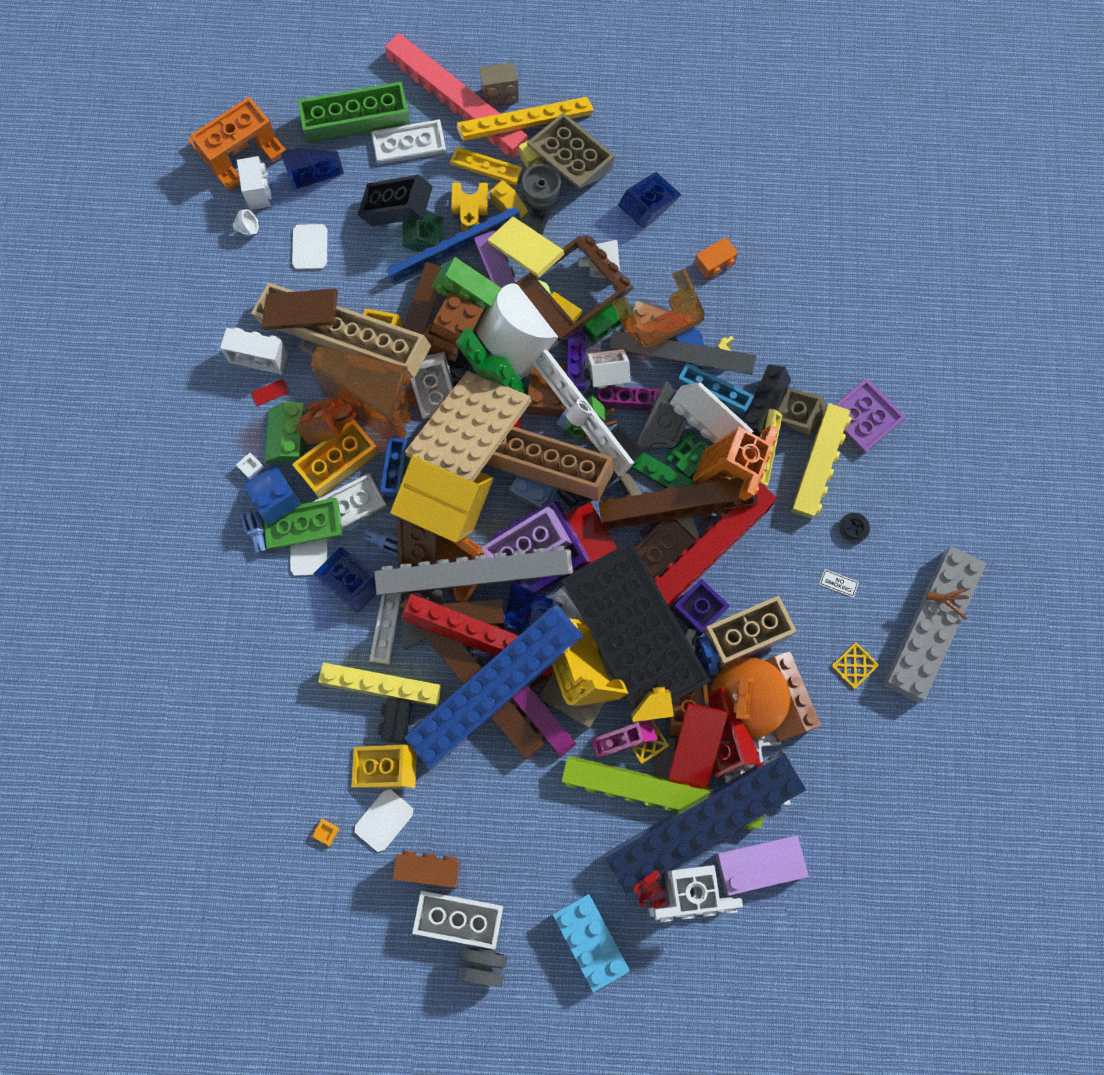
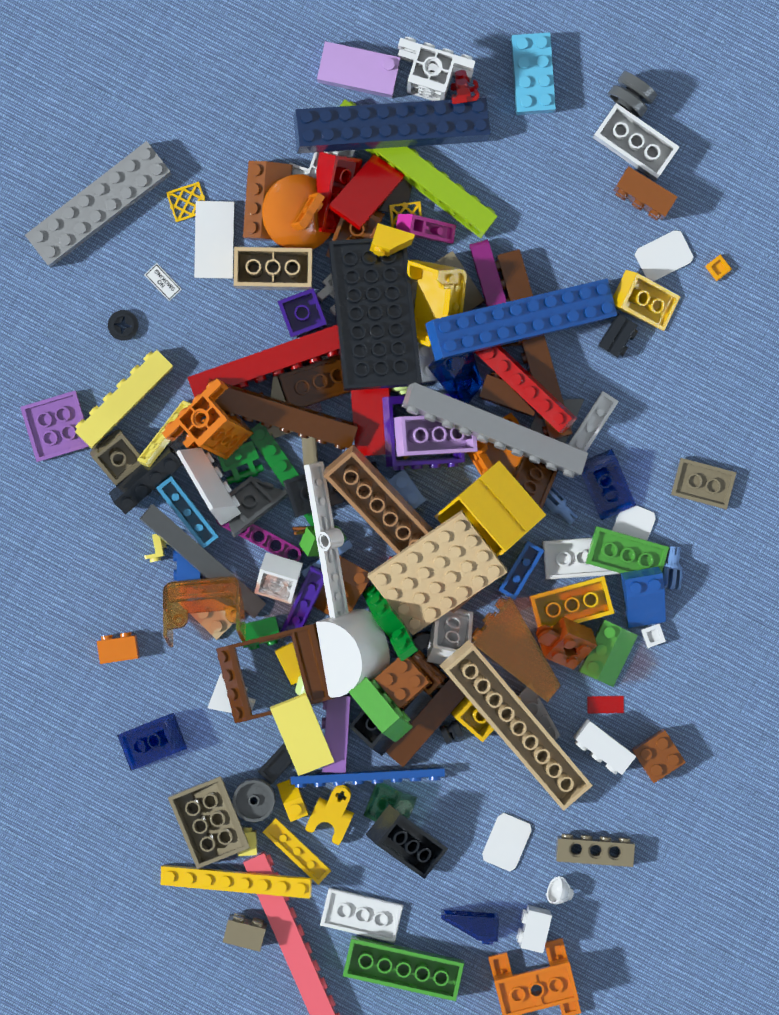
camera: 155 degrees left, 15 degrees up
(203, 366) = (658, 755): none -> dark orange brick
(218, 265) = (624, 858): none -> dark tan brick
(257, 620) = (703, 483): none -> dark tan plate
(300, 309) = (545, 761): reddish brown tile -> none
(380, 684) = (618, 373): light yellow brick -> none
(398, 307) = (454, 728): none -> black wheel
(707, 657) = (320, 260): blue plate -> none
(815, 642) = (214, 239): none -> white tile
(949, 596) = (81, 218): dark orange plant -> none

